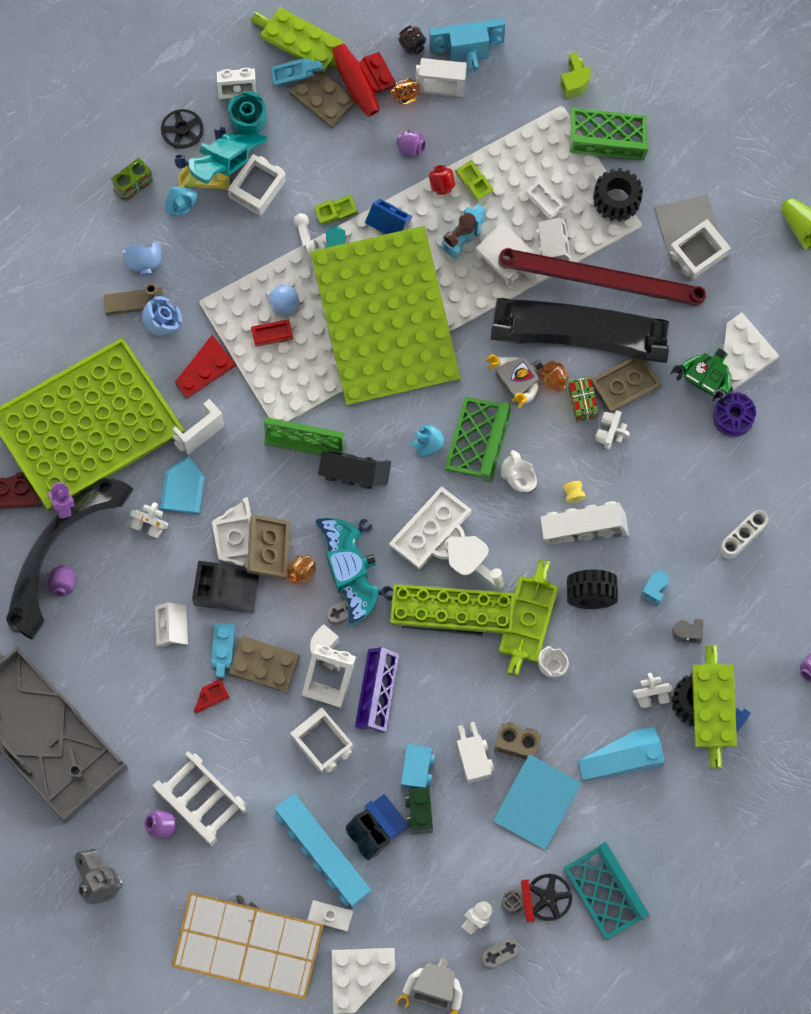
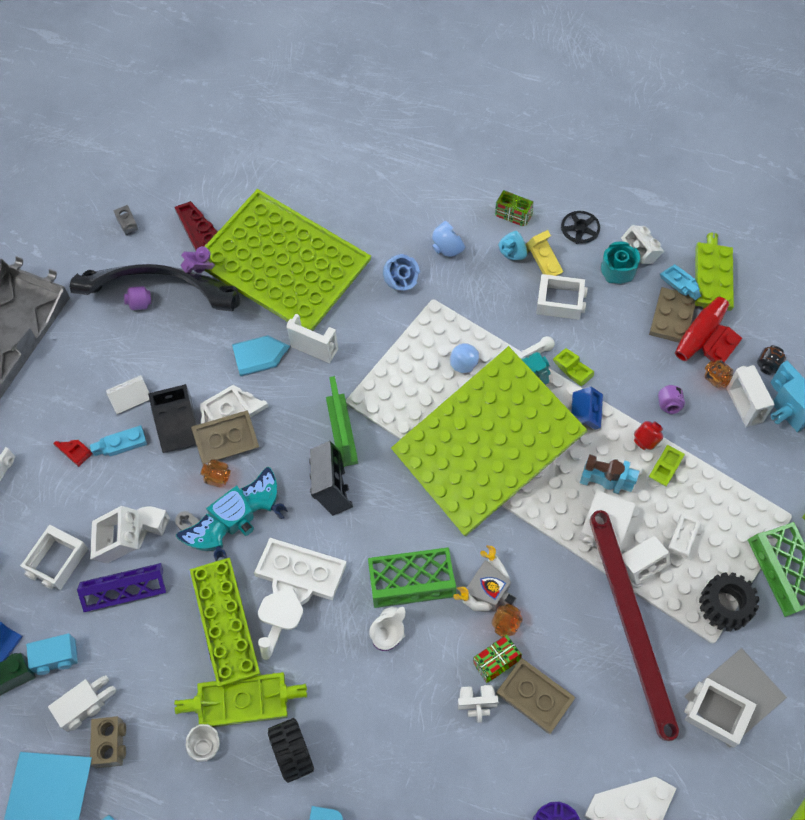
camera: 70 degrees right, 10 degrees down
(130, 301) = (403, 245): dark tan piece -> none
(140, 518) = (218, 338): white hips -> none
(204, 368) = (374, 327): red wing -> none
(222, 156) = (566, 253): teal torso -> none
(264, 664) = (117, 481): dark tan plate -> none
(272, 332) = (429, 361): red tile -> none
(428, 440) = (386, 530): medium azure piece -> none
(574, 491) = (394, 690): light yellow wheel -> none
(580, 326) = (585, 664): black panel -> none
(584, 523) = (363, 716): white wedge -> none
(707, 373) = (584, 777): green torso -> none

